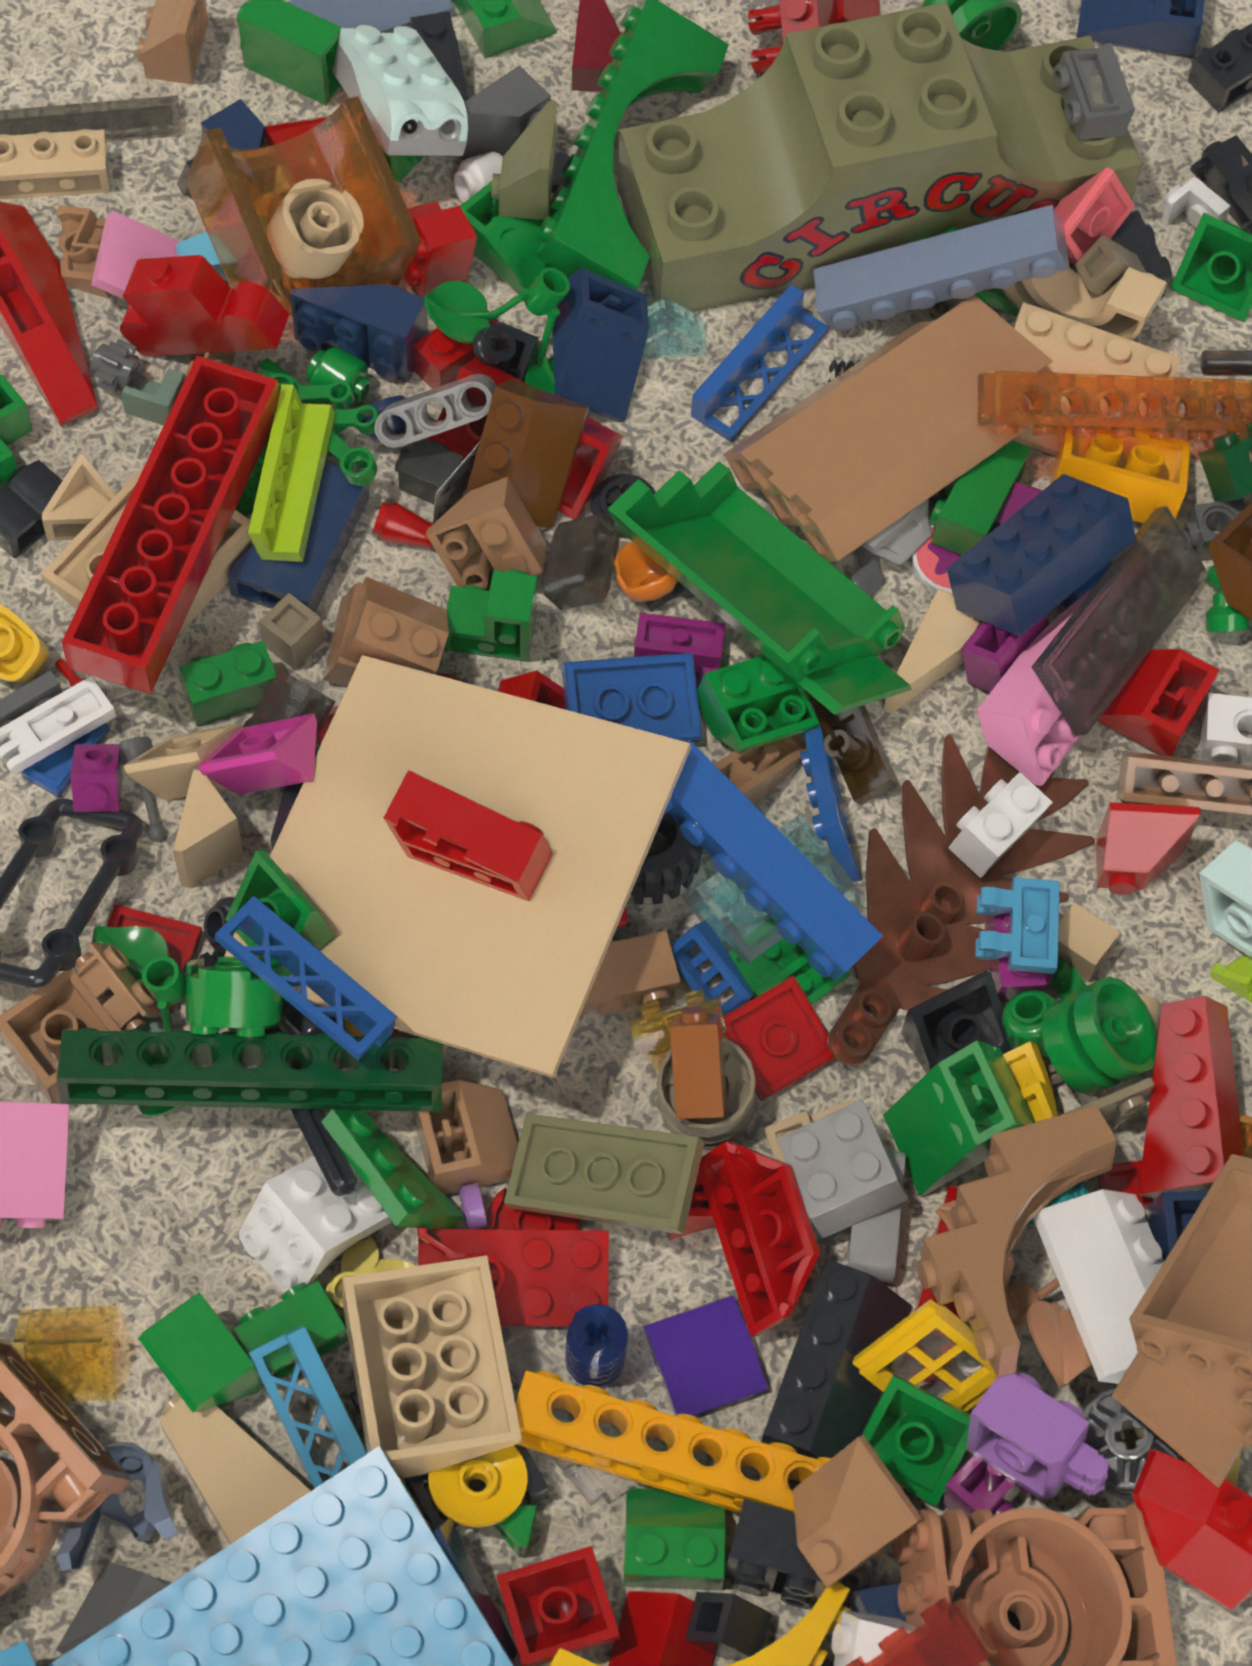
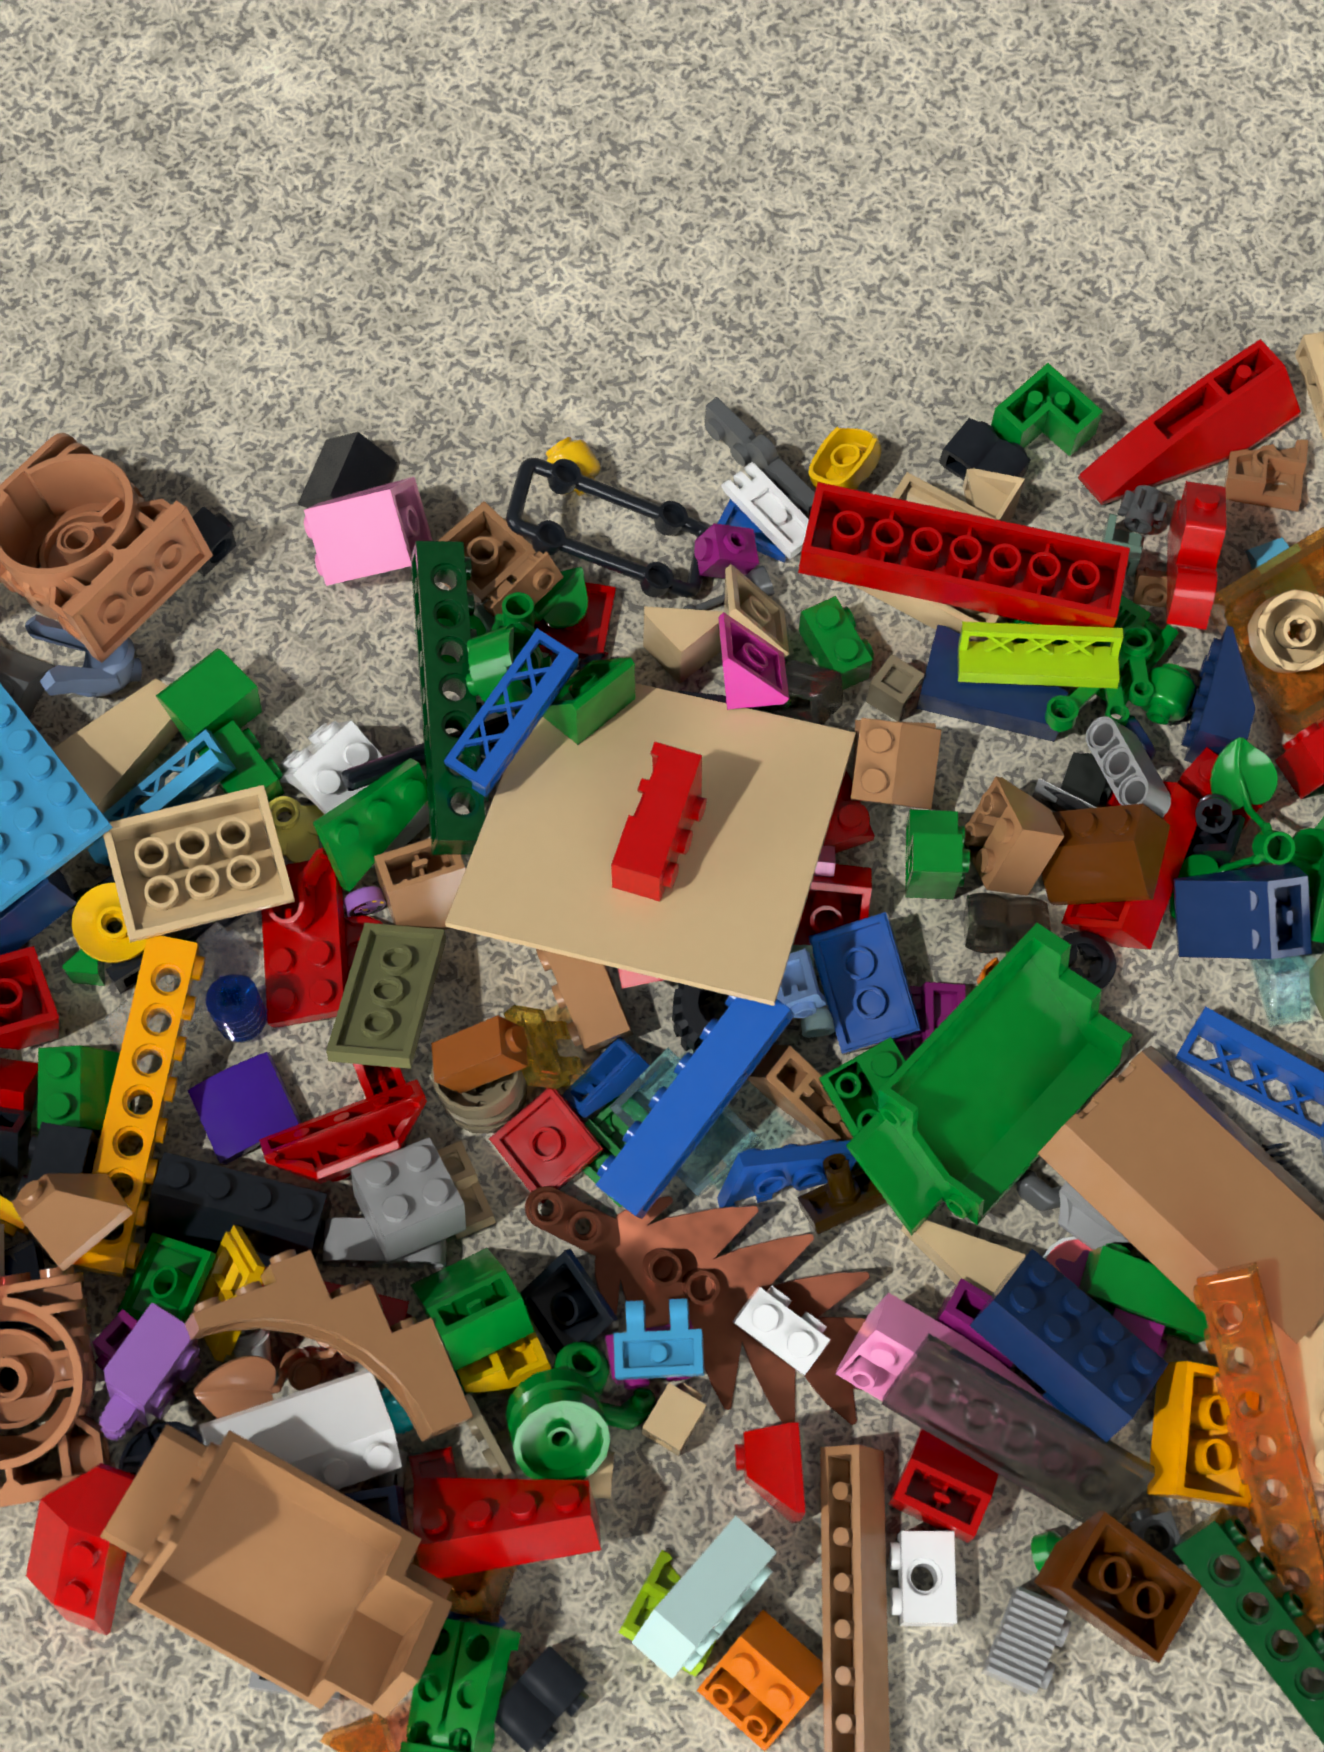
camera: 85 degrees right, 5 degrees up
(72, 1350) = (221, 609): clear yellow slope -> none
(120, 248) = (1257, 507): bright pink tile -> none
(401, 526) = (1024, 765): red cone -> none

